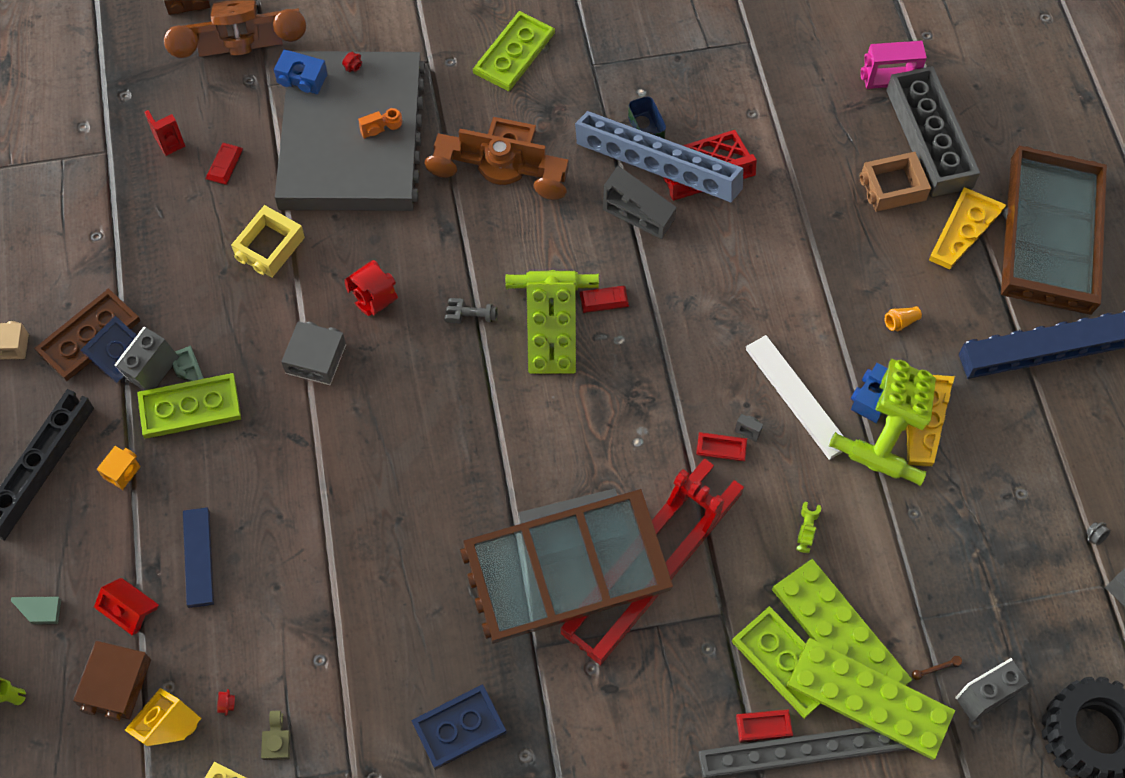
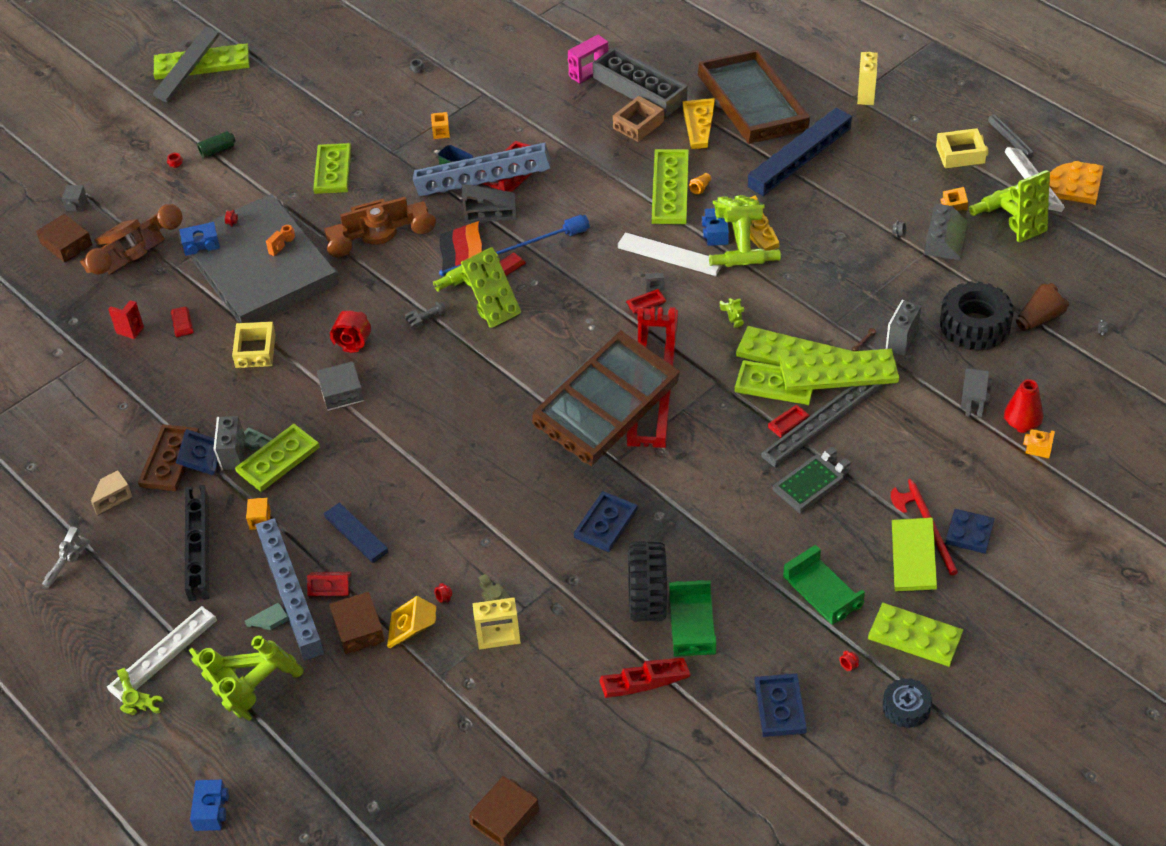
camera: 30 degrees left, 15 degrees down
(77, 590) = (289, 589): none -> sand blue brick
(576, 242) = (466, 242): none -> flag
(665, 60) = (440, 125): none -> light orange brick
(864, 301) = (670, 186): none -> lime plate

